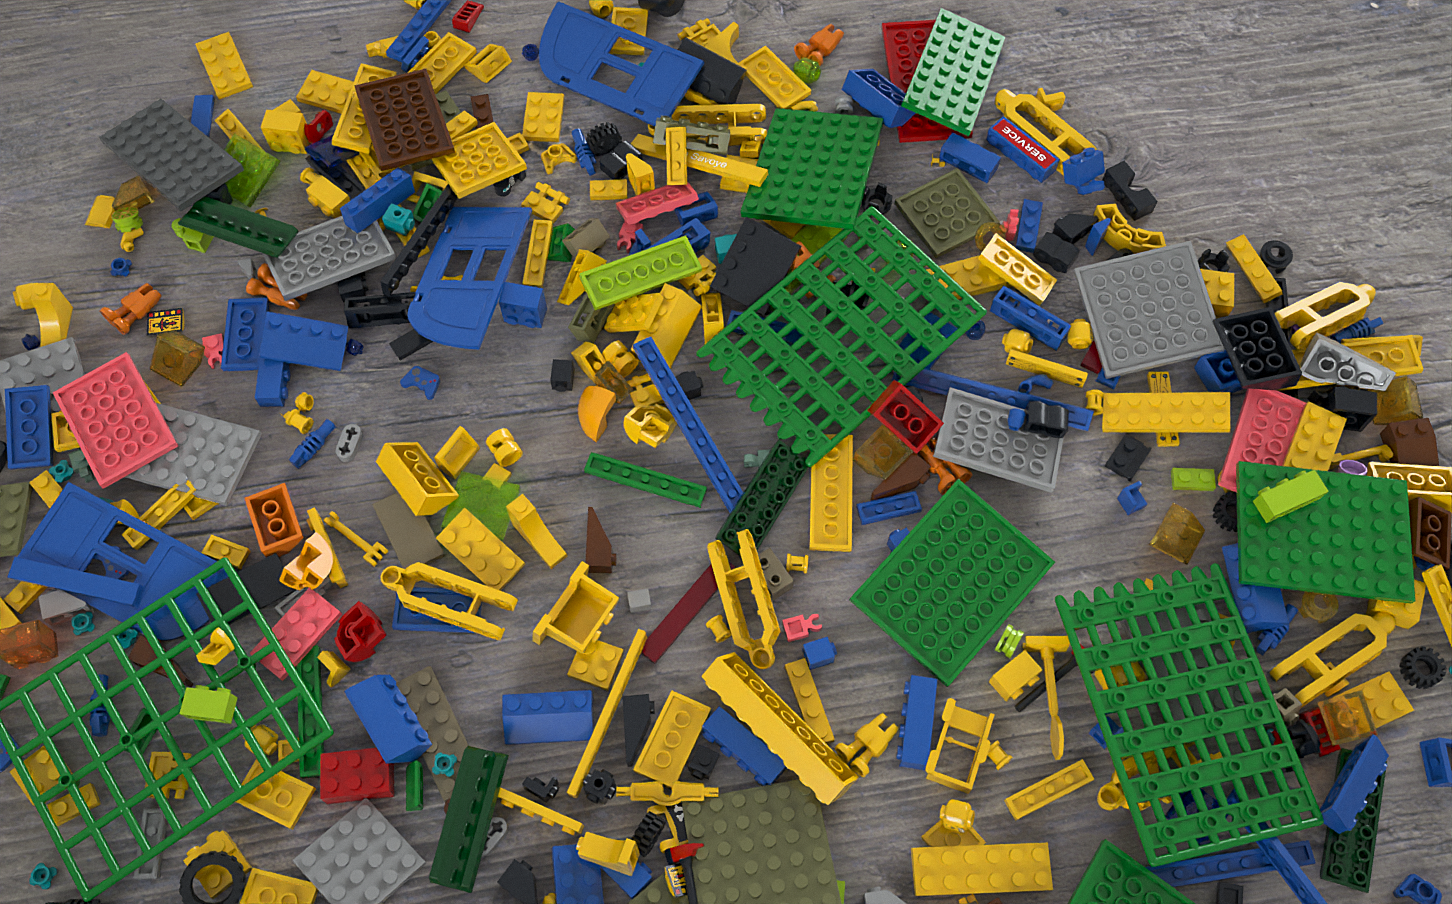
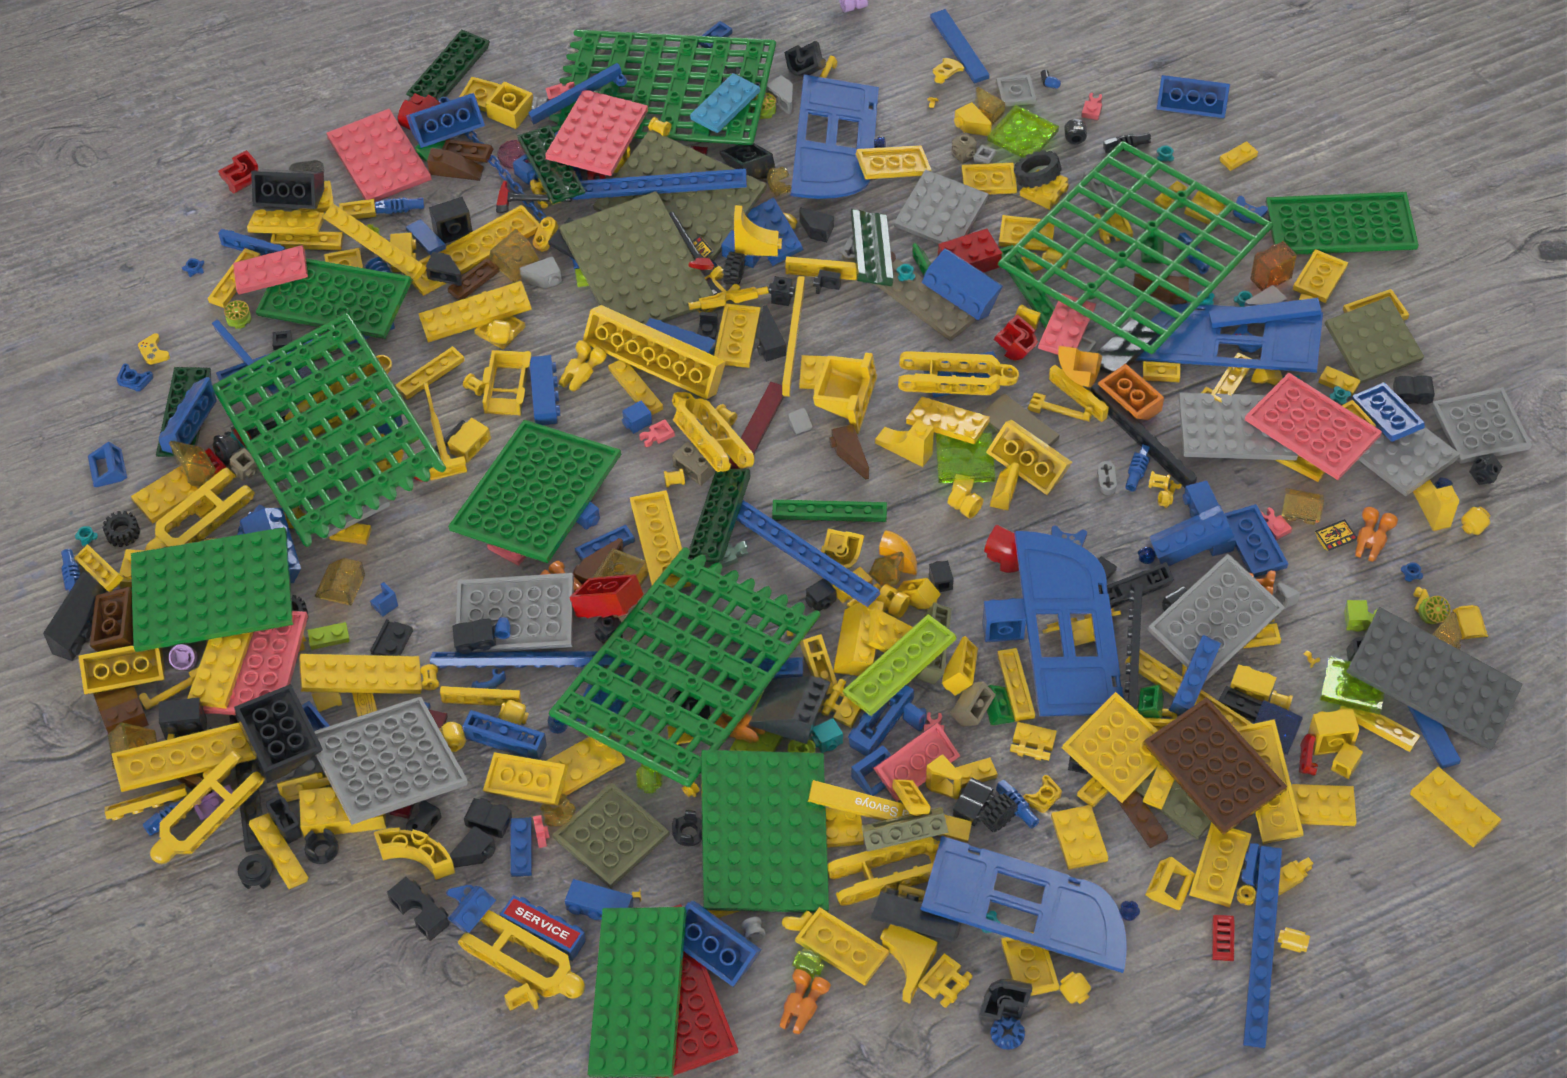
camera: 165 degrees right, 10 degrees down
(208, 705) = (1099, 248): lime brick -> none
(217, 649) = (1118, 286): yellow tile -> none
(239, 226) = (1313, 614): dark green plate -> none
(285, 467) = (1138, 433): none -> black plate
(398, 219) = (1165, 668): teal brick -> none
(489, 376) = (1002, 549): none -> red brick
(548, 717) = (841, 328): blue slope -> none
(750, 149) = (839, 849): yellow plate -> none
(1013, 638) = (478, 460): lime wheel -> none
(1096, 235) = (446, 834): blue slope -> none
(1247, 290) = (284, 819): none -> black brick
(1290, 495) = (245, 590): lime brick -> none
(1335, 363) = (202, 743): light grey wedge -> none

